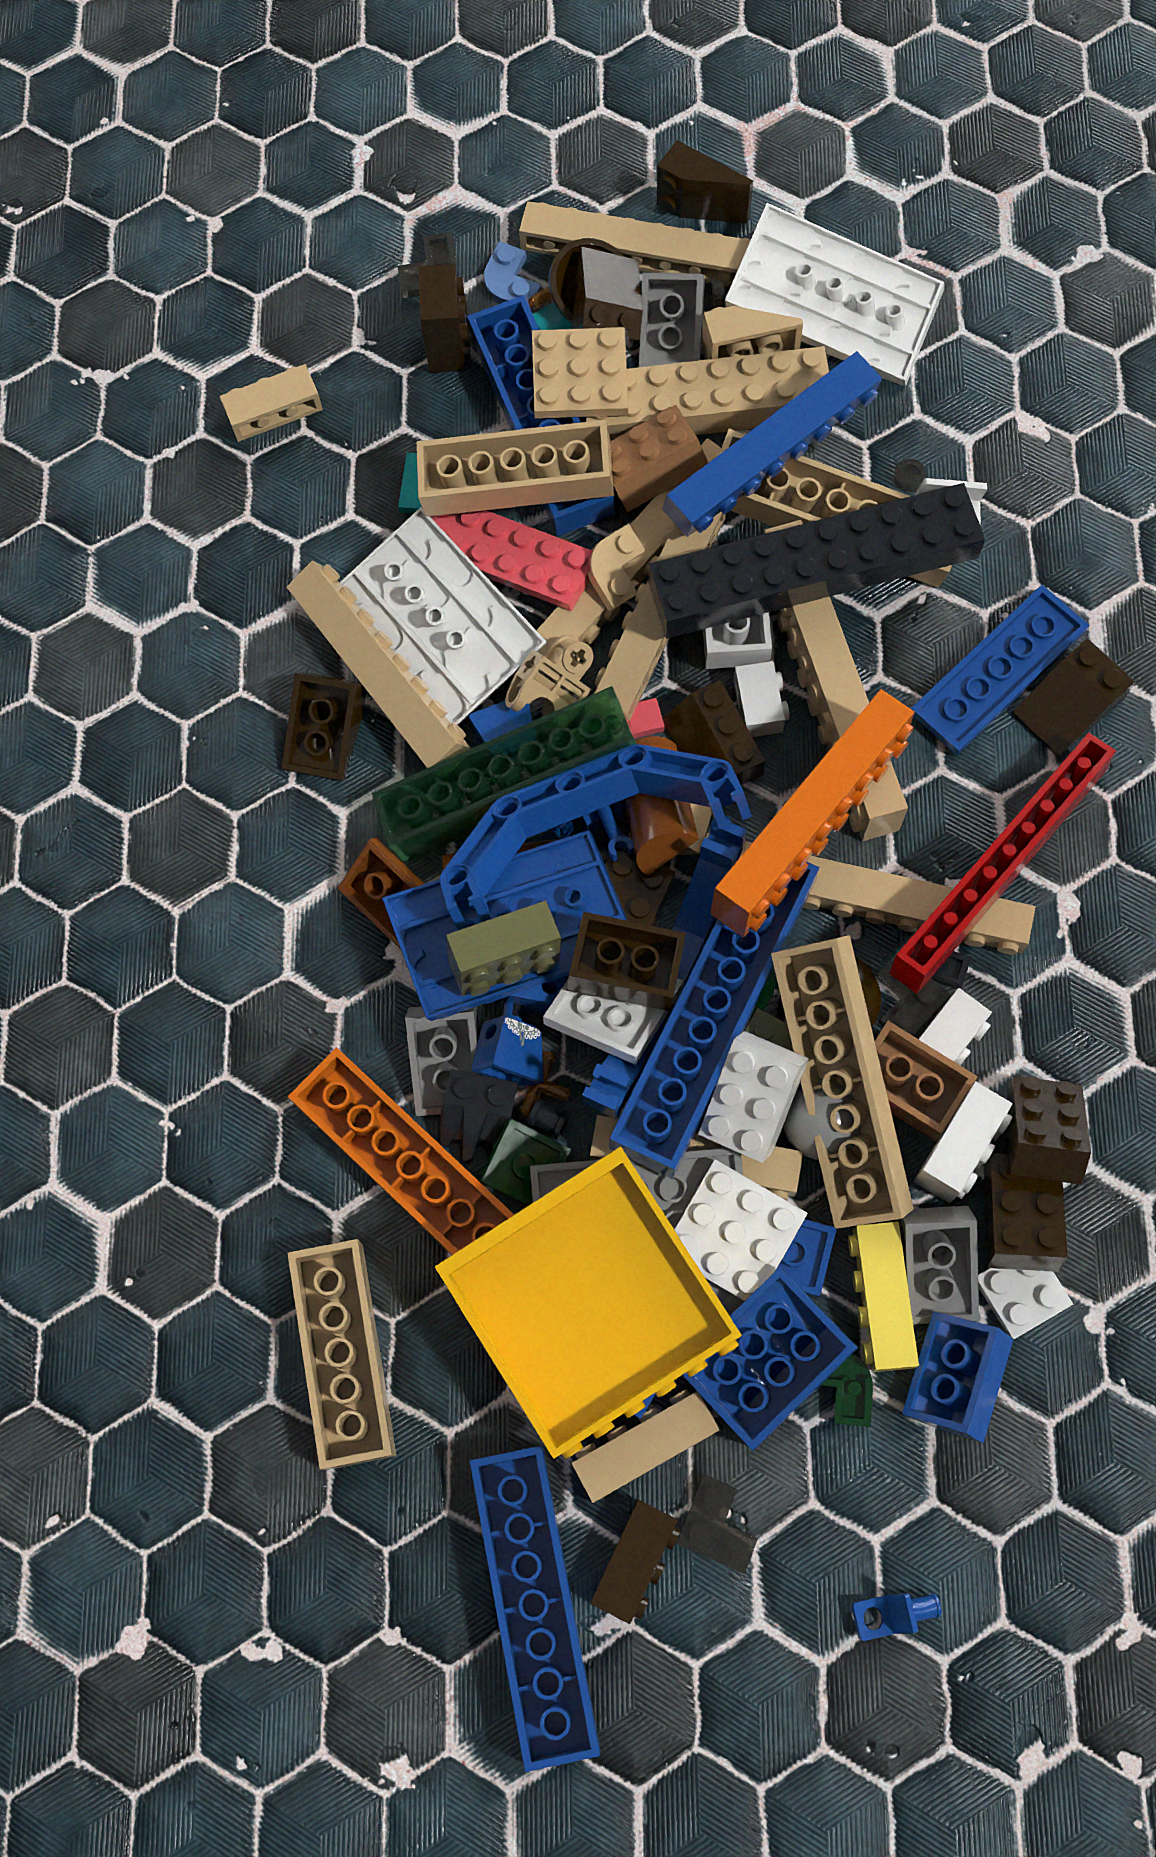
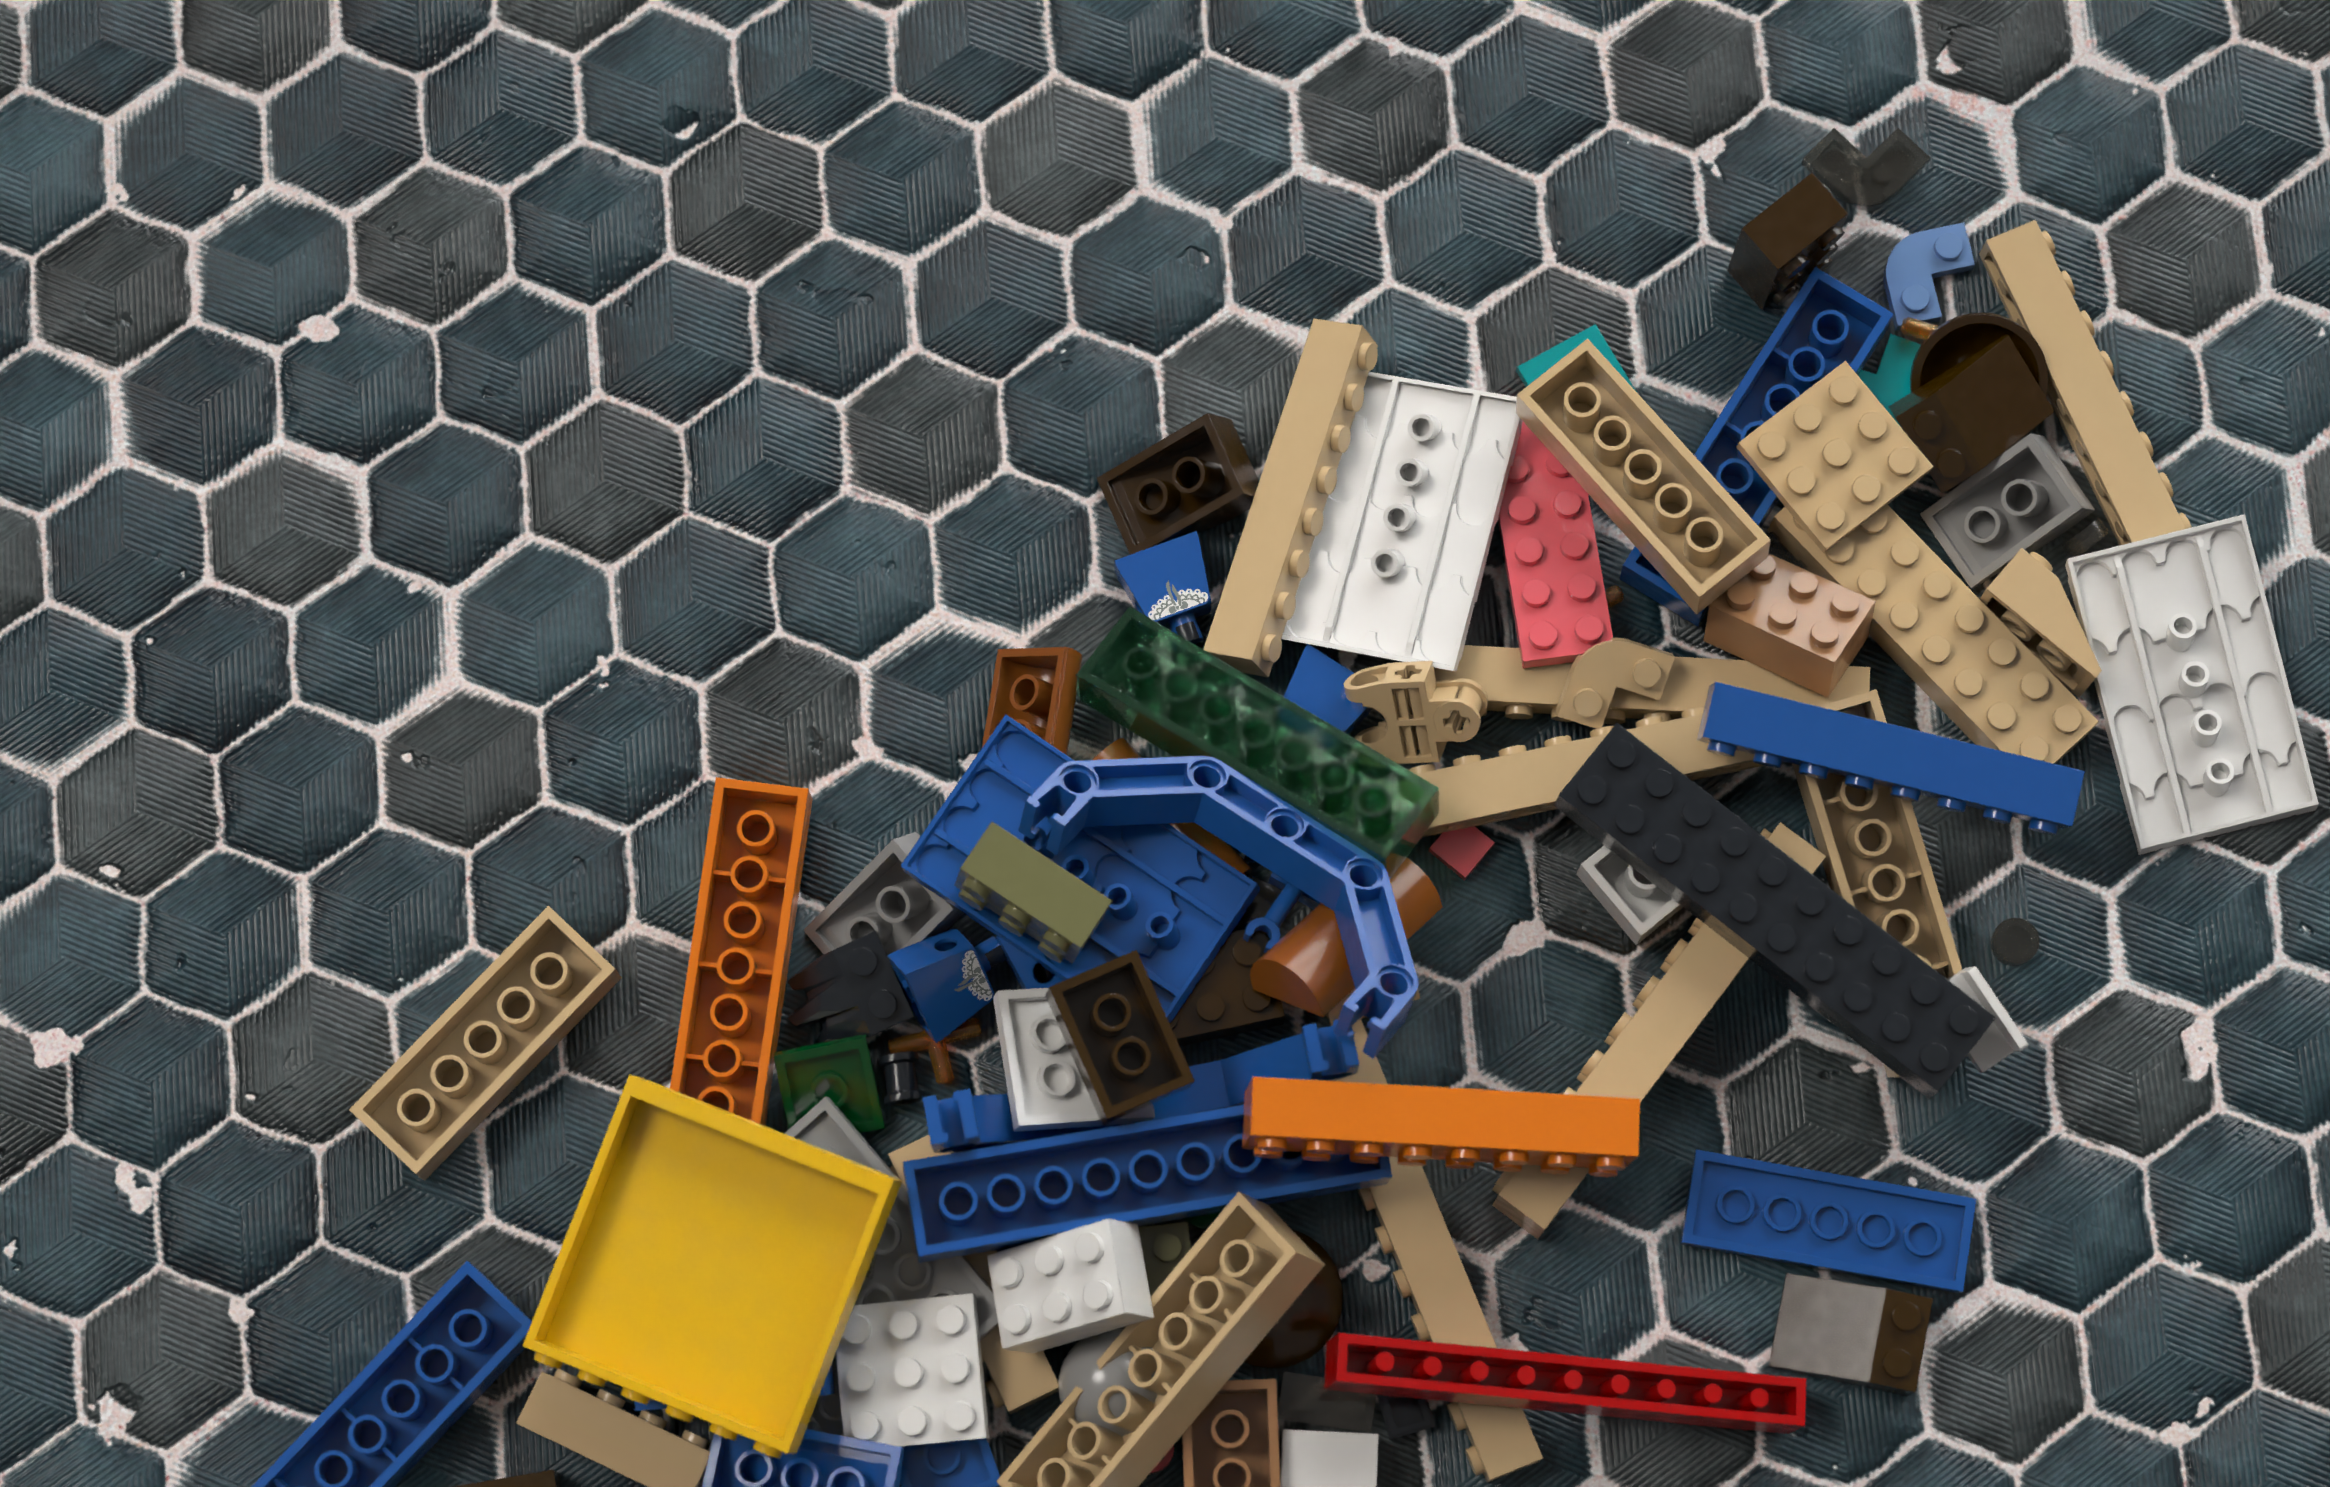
camera: 50 degrees right, 5 degrees up
(271, 402) = (1541, 117): tan brick -> none
(371, 767) = (1168, 584): none -> blue torso
(702, 187) = (2213, 413): dark brown slope -> none
(712, 727) = (1485, 947): dark brown slope -> none
(759, 698) = (1579, 965): white brick -> none

